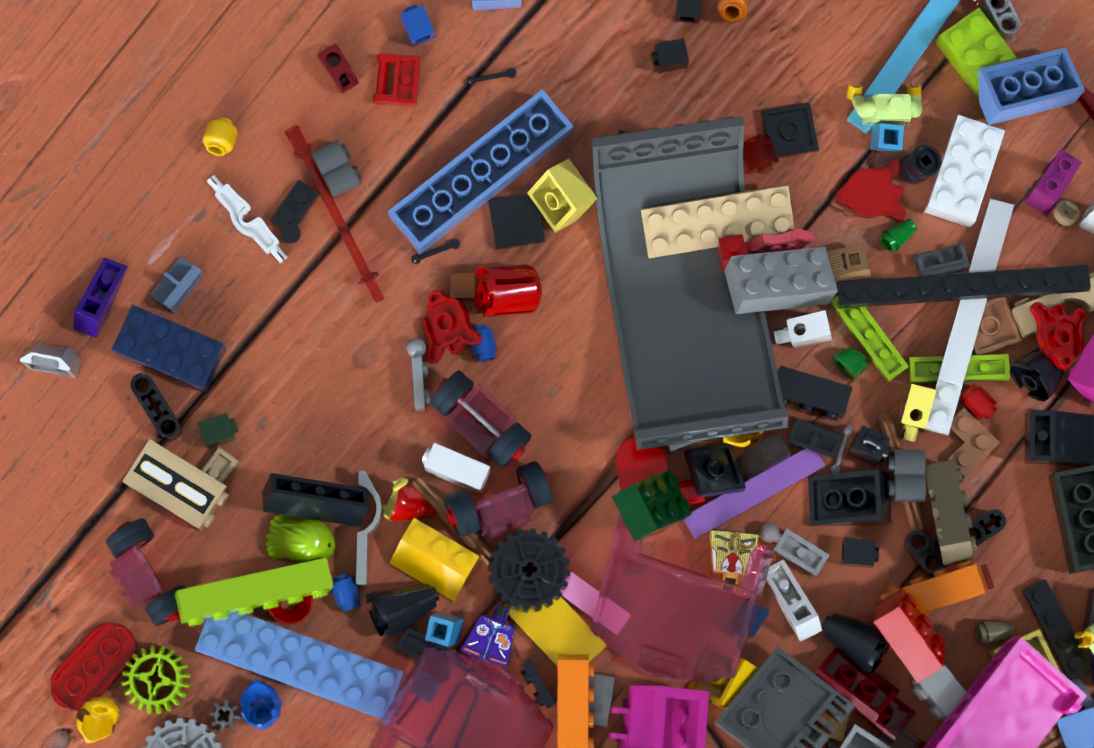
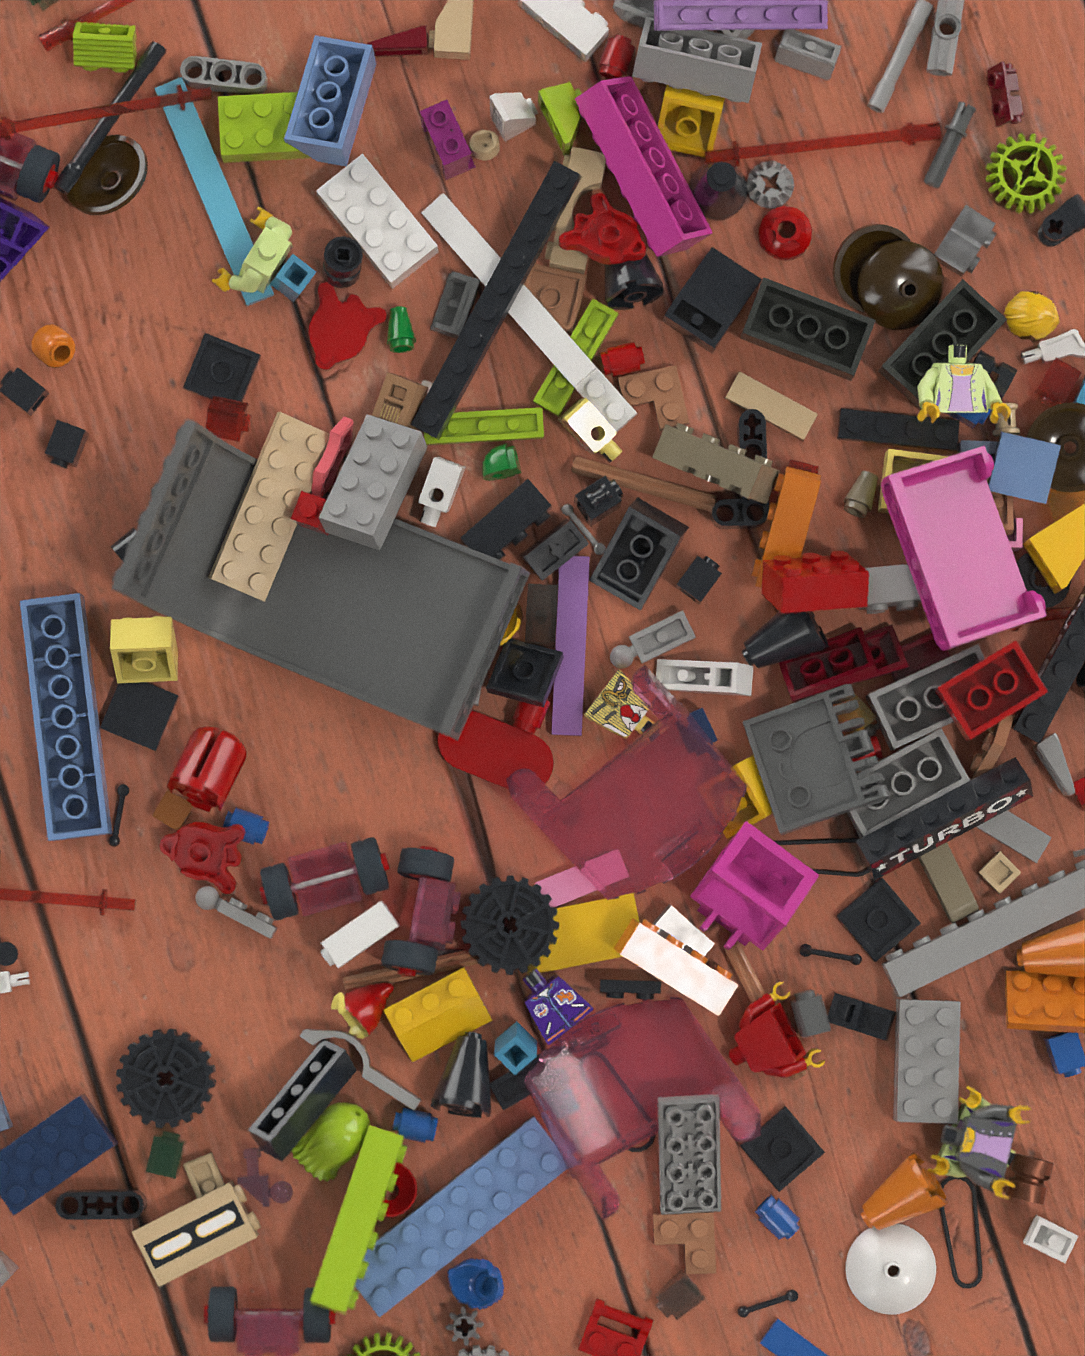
camera: 60 degrees left, 5 degrees up
(237, 509) = (259, 1184): none -> piece
(254, 405) = (165, 1054): none -> black piece
(652, 505) = (524, 760): dark green brick -> none
(908, 475) = (652, 480): dark grey brick -> none
(1015, 533) = (774, 406): none -> tan tile

